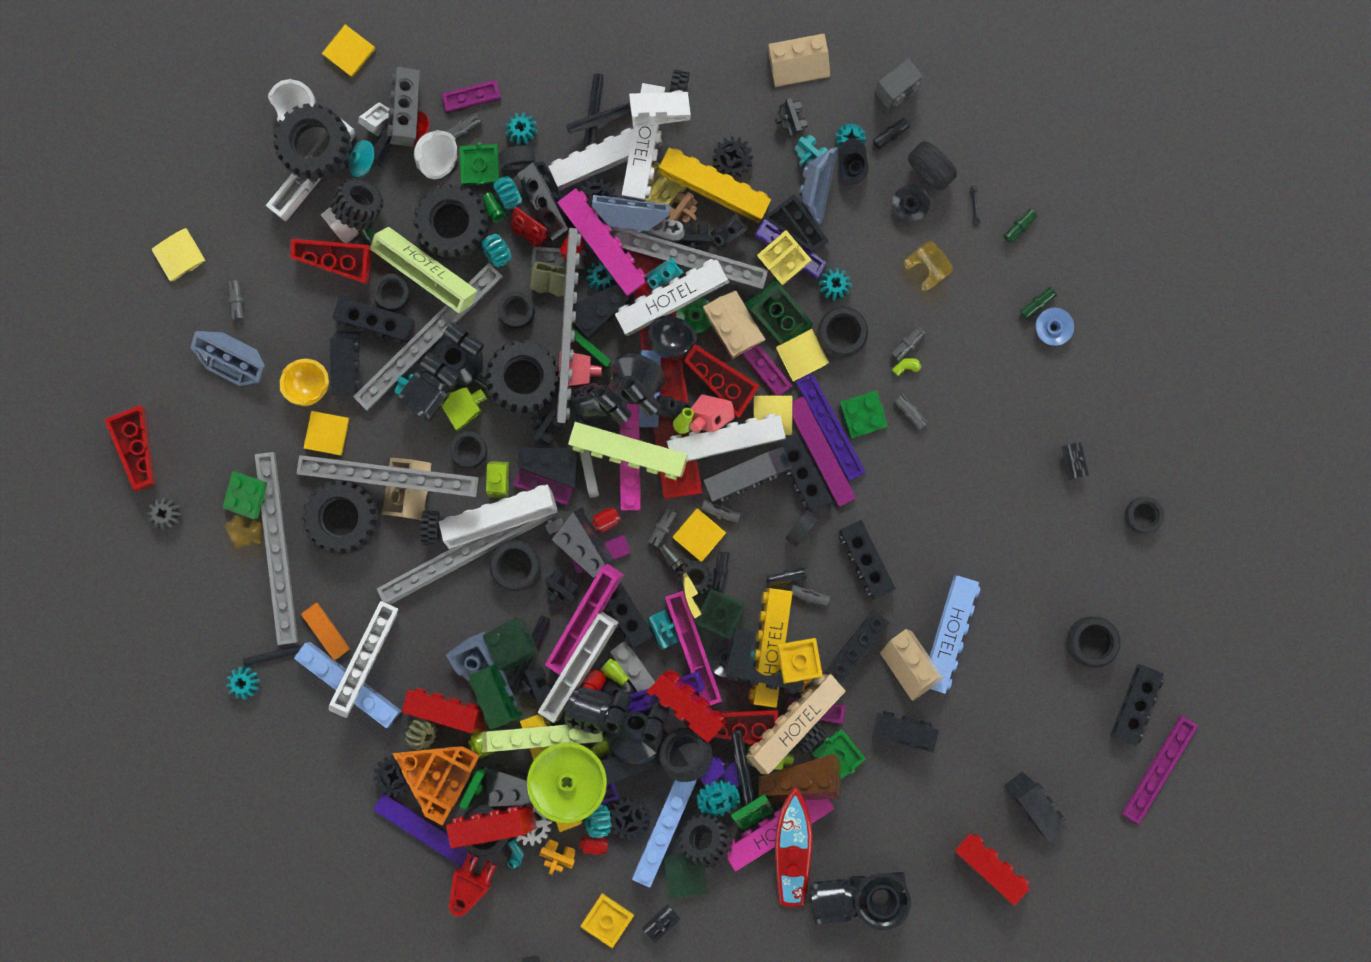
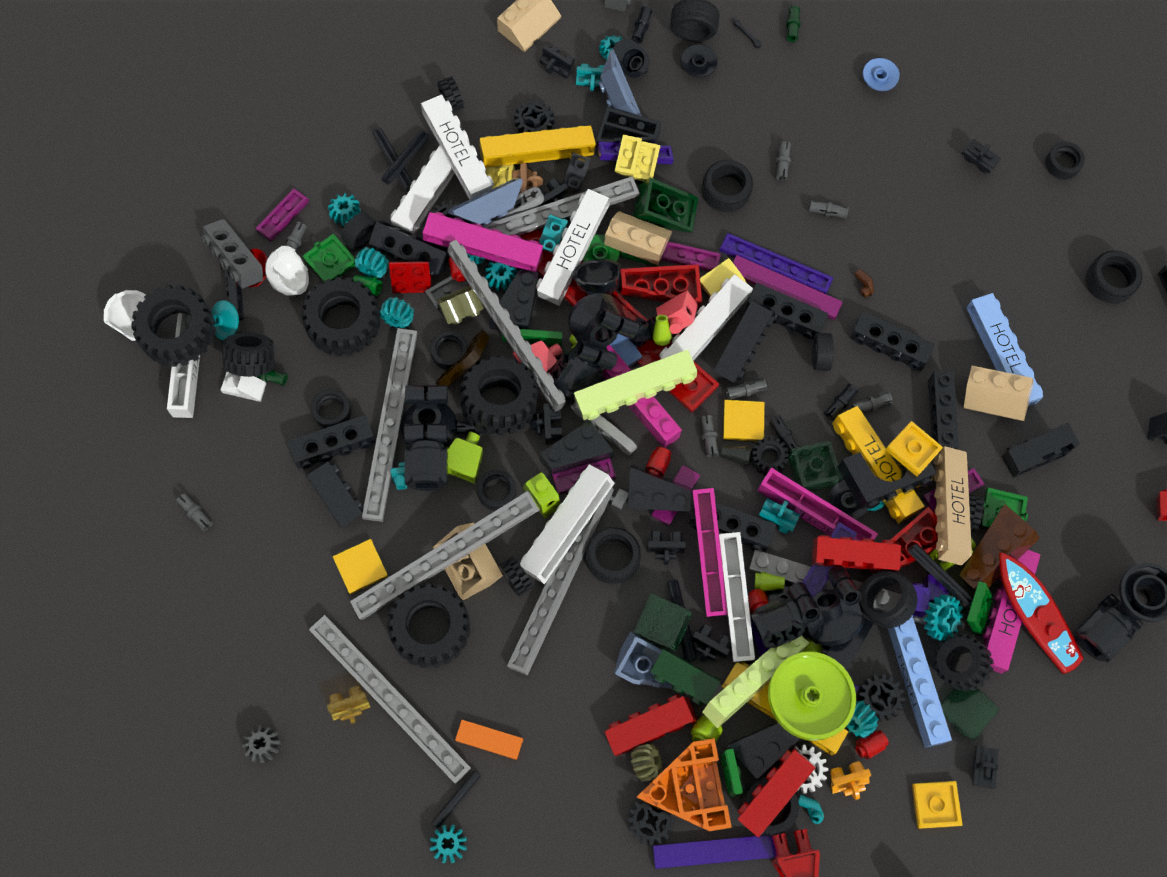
camera: 45 degrees left, 15 degrees down
(133, 445) = (185, 700): red wedge -> none
(178, 254) = (113, 510): light yellow slope -> none
(228, 357) = (224, 563): sand blue wedge -> none
(245, 495) = (326, 671): green plate -> none
(304, 382) = (309, 533): yellow cylinder -> none
(332, 673) = (546, 770): light blue brick -> none
(340, 258) = (259, 413): red wedge -> none
(348, 51) = (149, 248): yellow tile -> none
(363, 659) = (547, 731): white brick -> none
(375, 119) = (213, 284): white slope -> none
(423, 269) = (346, 368): yellowish green brick -> none
(520, 332) = (470, 357): none -> dark brown beam
(659, 108) = (450, 108): white wedge -> none
(690, 591) = (776, 458): light yellow slope -> none
(802, 355) = (710, 224): light yellow slope -> none
(843, 284) = (691, 156): teal gear -> none
(863, 414) = (793, 236): green plate -> none
(889, 495) = (867, 281): none -> reddish brown arm
(907, 363) = (799, 173): lime arm -> none
(934, 259) = (751, 87): clear yellow piece -> none
(1038, 303) = (854, 67): dark green pin -> none

